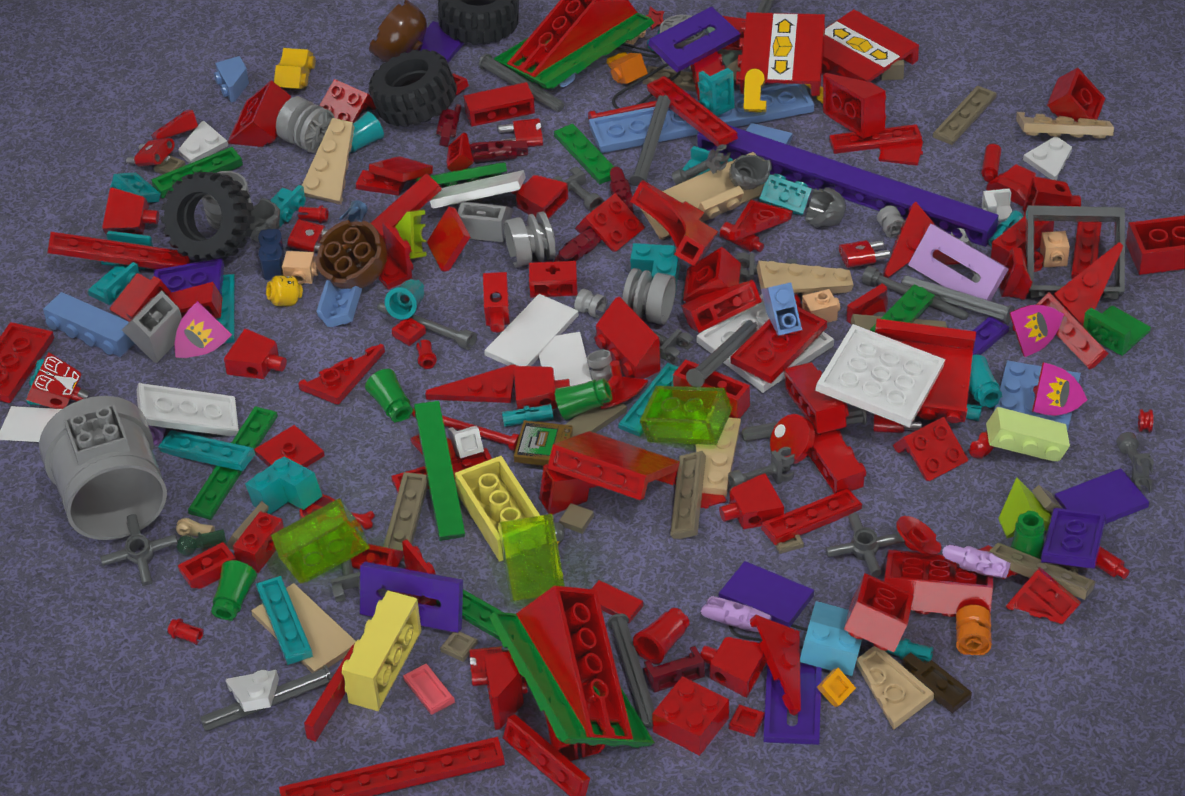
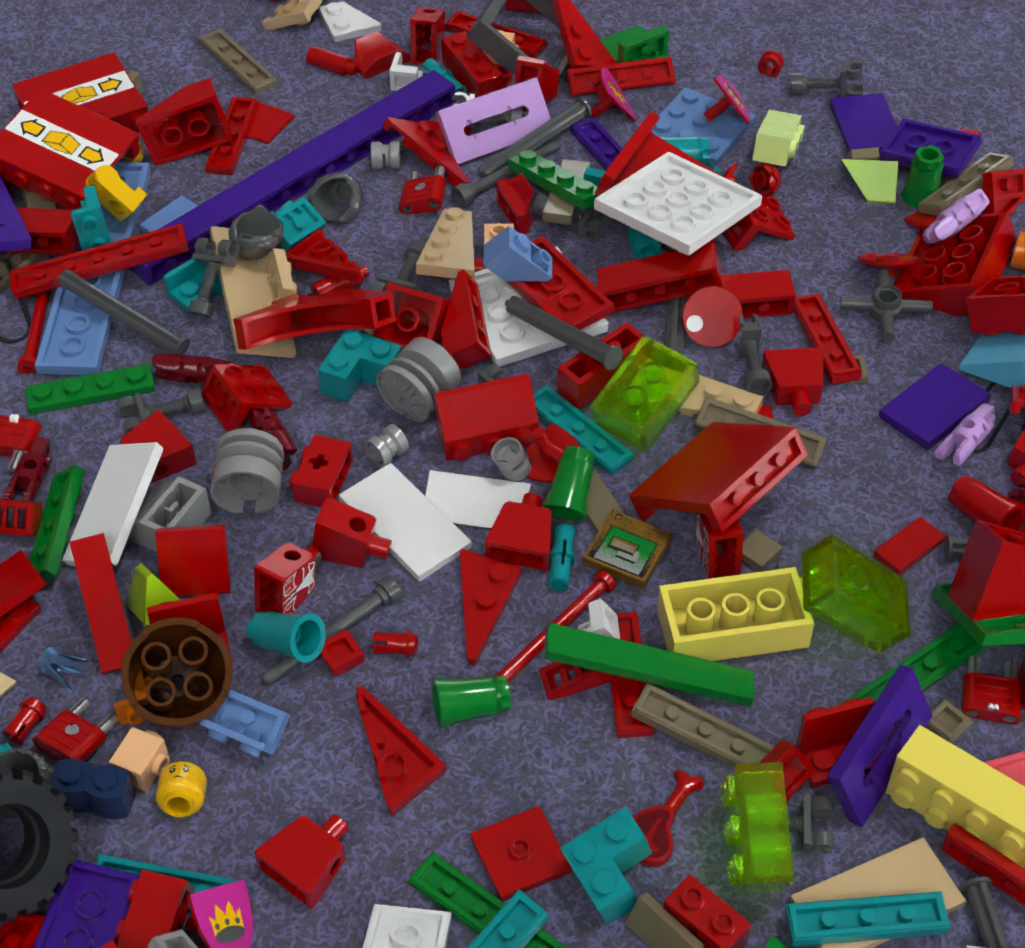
camera: 75 degrees left, 5 degrees up
(450, 285) = (285, 578): none -> red torso

